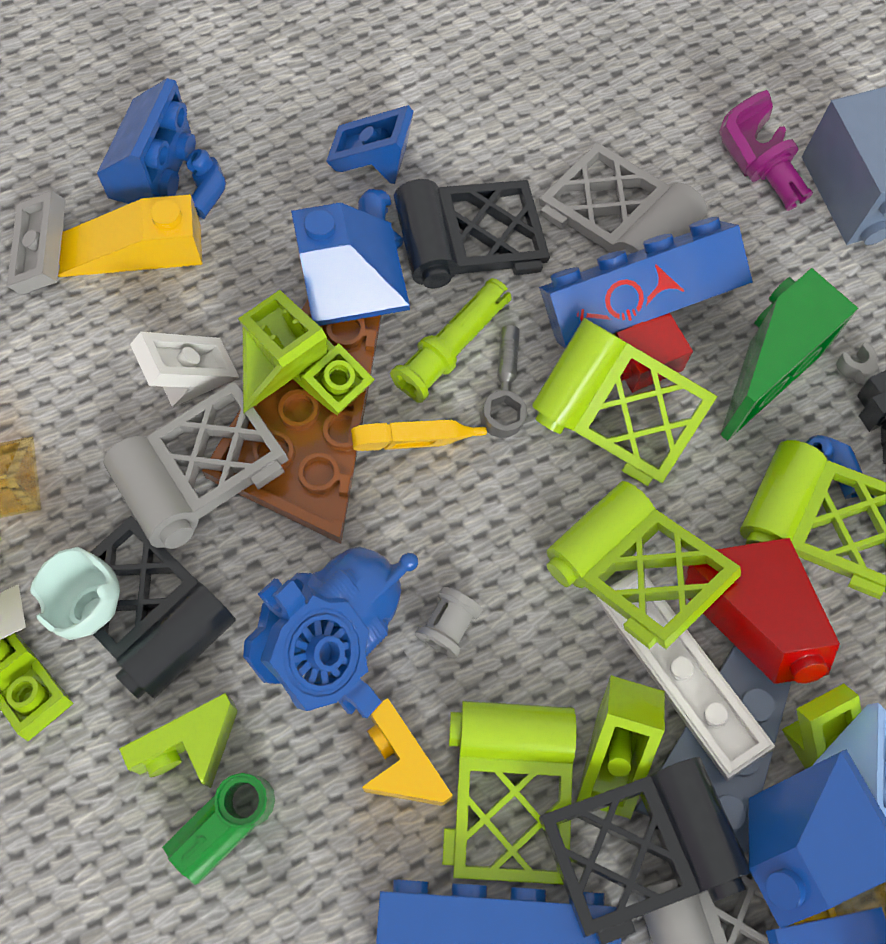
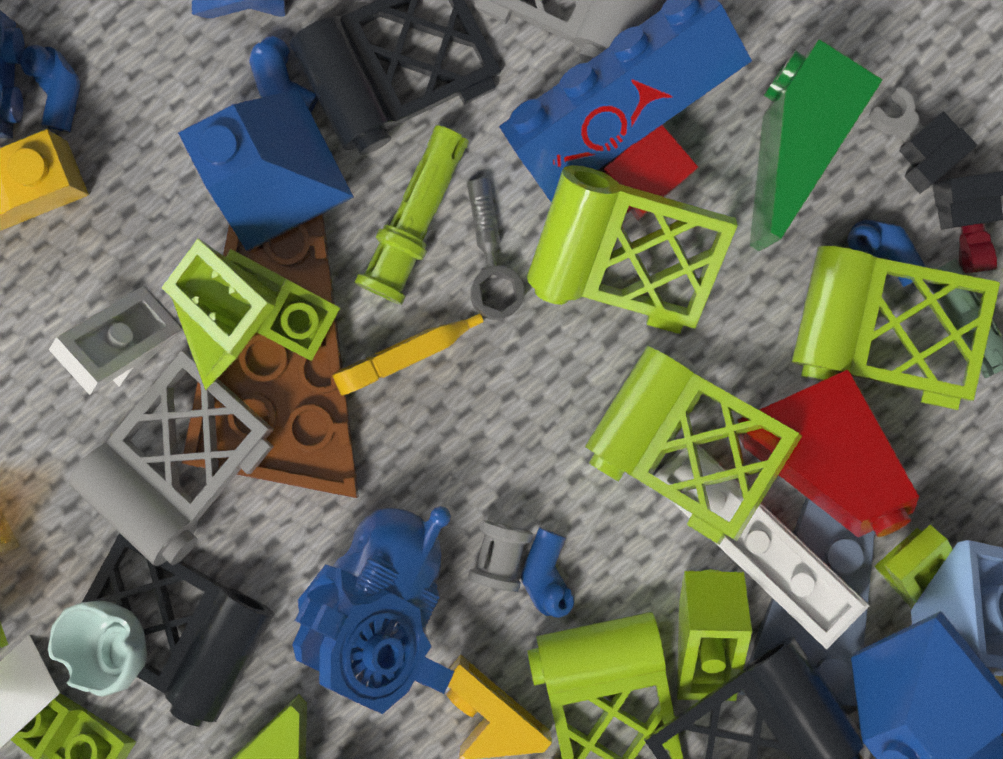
camera: 10 degrees left, 20 degrees up
(480, 655) = (542, 578): none -> blue arm

